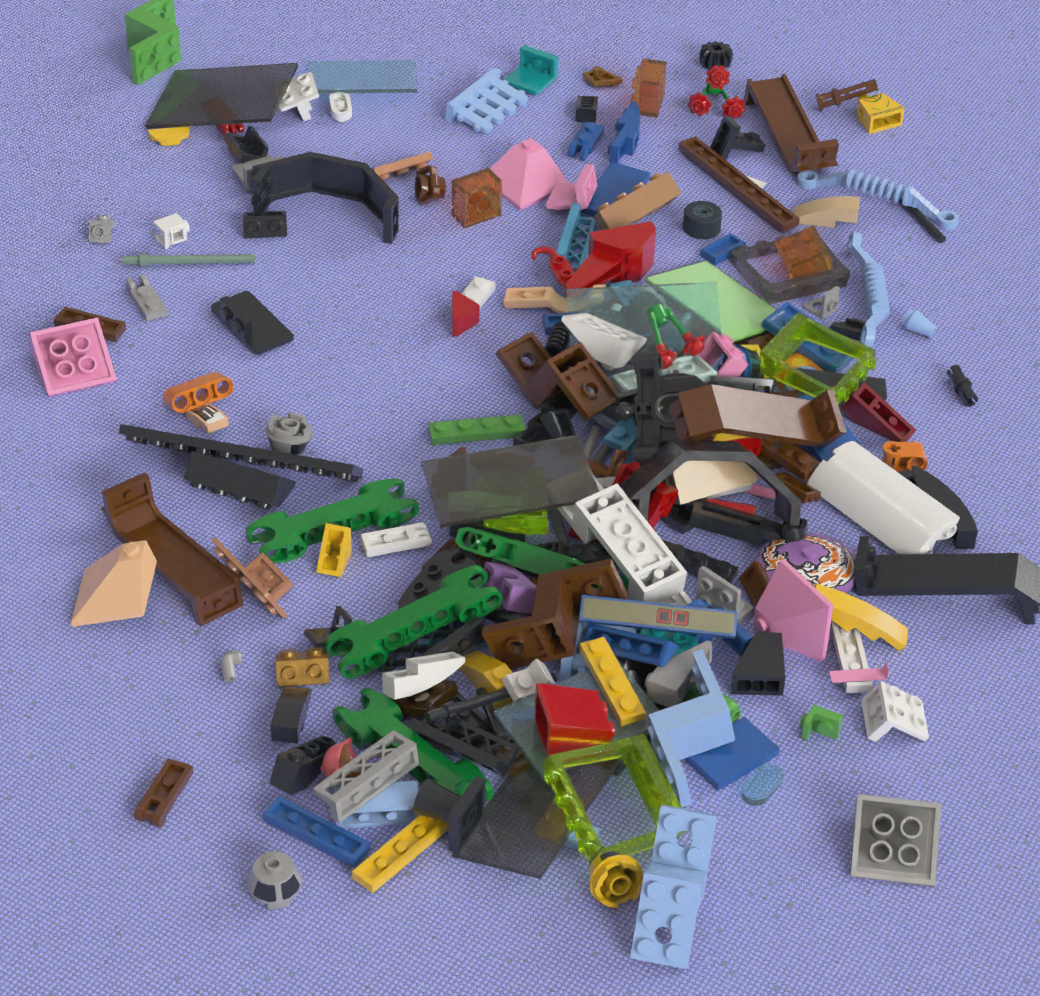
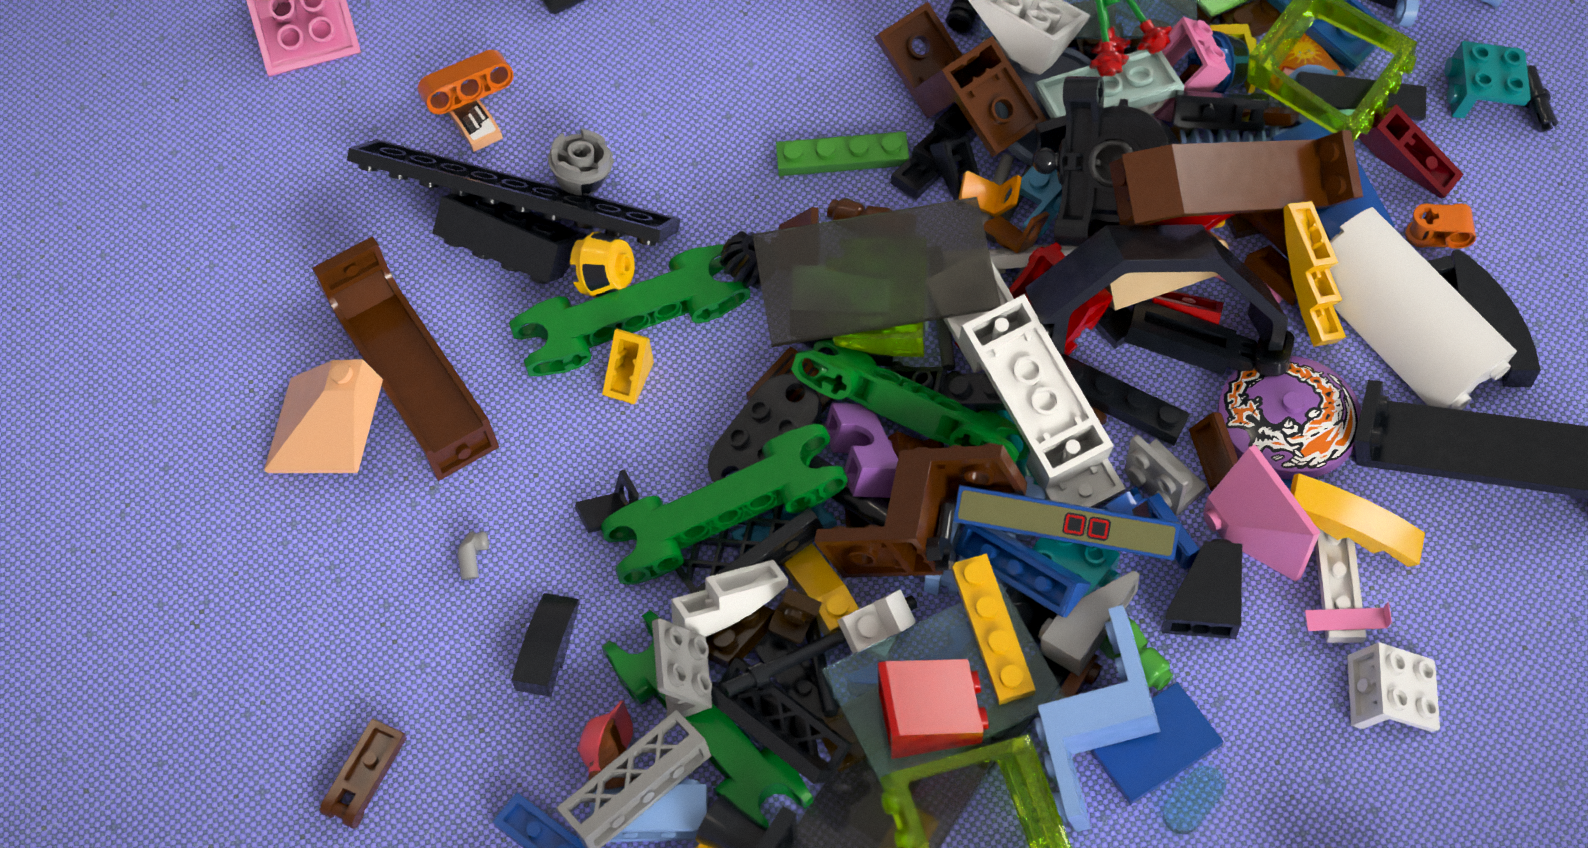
camera: 10 degrees right, 20 degrees up
(261, 574) = (519, 412): nougat bracket -> none
(300, 765) = (555, 735): black slope -> none
(302, 667) = (568, 563): pearl gold bracket -> none
(311, 489) = (602, 264): none -> yellow cone
(395, 539) = (714, 345): white hinge -> none
(395, 705) = (682, 668): none -> light grey bracket
(413, 484) = (740, 260): none -> black gear
(471, 679) = (793, 616): none -> dark brown bracket
(570, 628) = (939, 547): none -> black bar
(590, 448) = (989, 194): none -> light orange bracket
(814, 477) = (1310, 262): none -> yellow slope
(821, 721) = (1288, 697): bright green bracket -> none
(925, 368) = (1486, 74): none -> teal bracket

